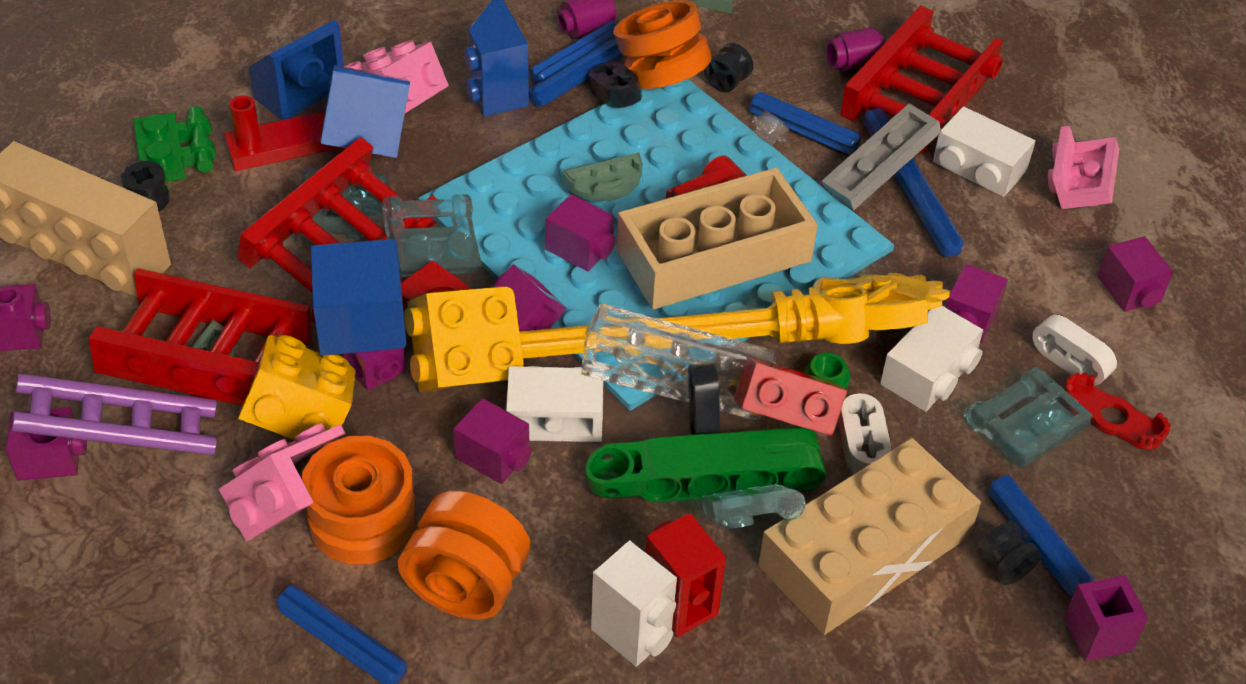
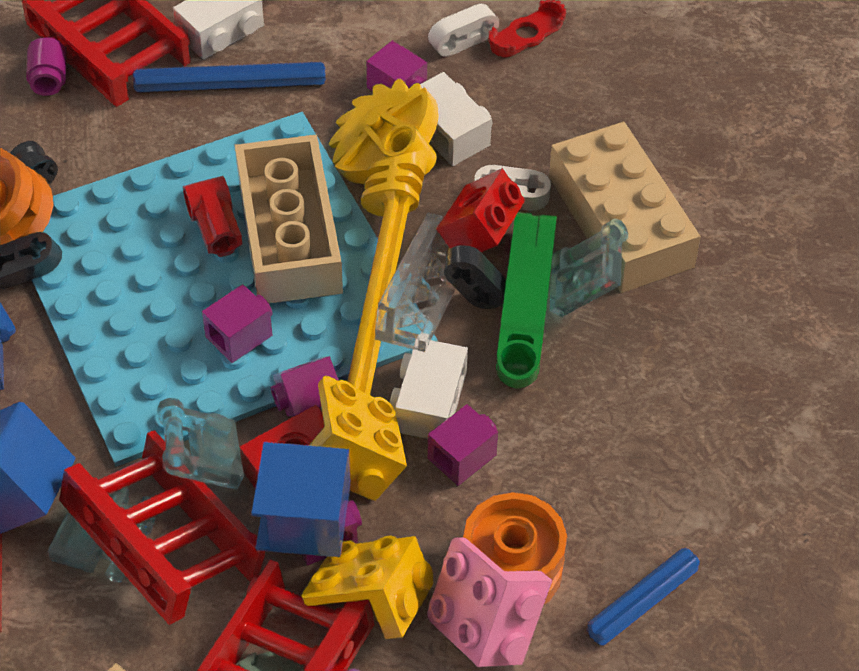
camera: 75 degrees left, 5 degrees up
(464, 555) = (604, 473): orange wheel -> none
(604, 179) = (159, 294): sand green tile -> none
(633, 603) = (674, 365): white brick -> none
(699, 568) = (651, 327): red brick -> none
(770, 128) = (128, 156): clear plate -> none
(807, 123) = (125, 132): blue axle -> none
(829, 367) = (441, 193): green plate -> none
(881, 156) = (209, 82): light grey plate -> none
(1008, 553) = (655, 128): black wheel -> none
(1034, 427) = (532, 74): clear light blue plate -> none
(1038, 531) = (634, 108): blue axle -> none
(1105, 618) = (731, 88): magenta brick -> none

